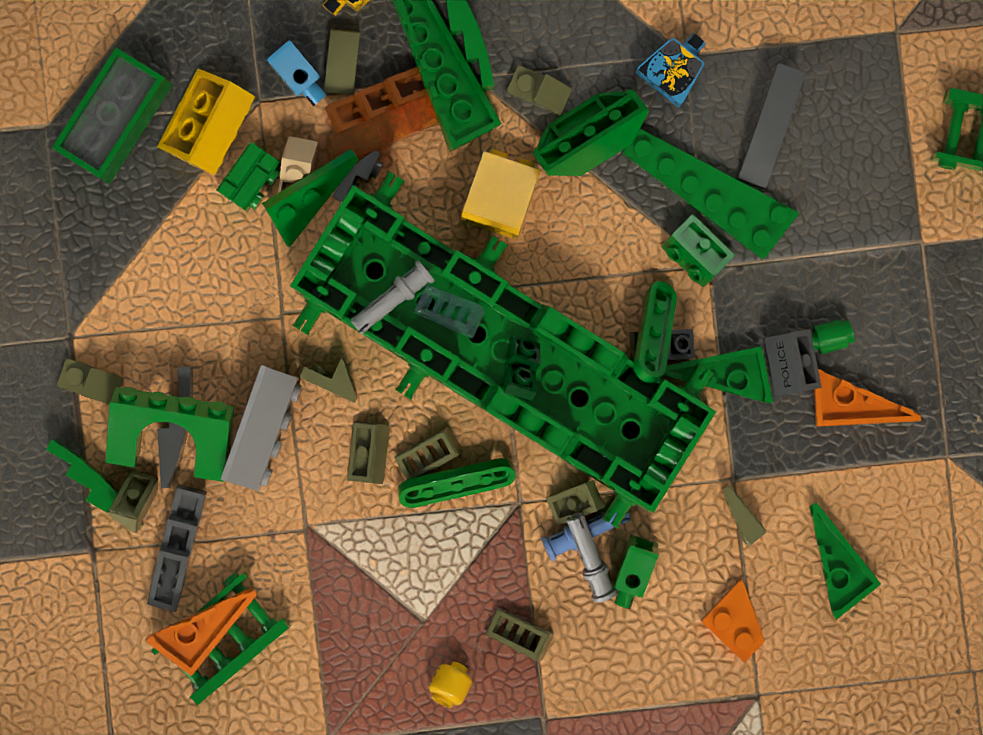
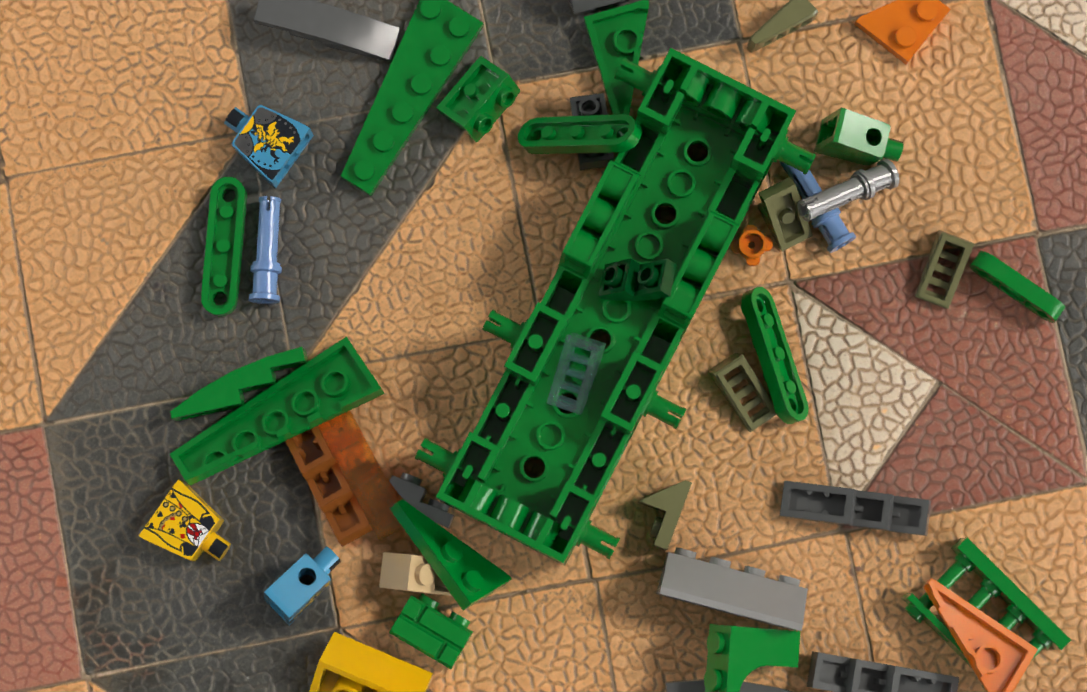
camera: 90 degrees left, 5 degrees down
(322, 539) = (855, 508): none -> dark grey slope
(342, 61) = (285, 531): olive slope -> none
(368, 452) = (747, 463): olive slope -> none
(403, 288) = (554, 428): light grey pin -> none
(450, 684) = (1012, 343): yellow head -> none
(498, 694) = (1017, 286): none -> green beam
(500, 194) = (430, 329): yellow slope -> none
(539, 90) = (303, 296): olive slope -> none
(552, 464) = (741, 247): none -> orange plate
(566, 60) = (266, 266): none -> medium blue pin
(587, 25) = (224, 246): none -> green plate
(590, 133) = (349, 230): green wedge -> none

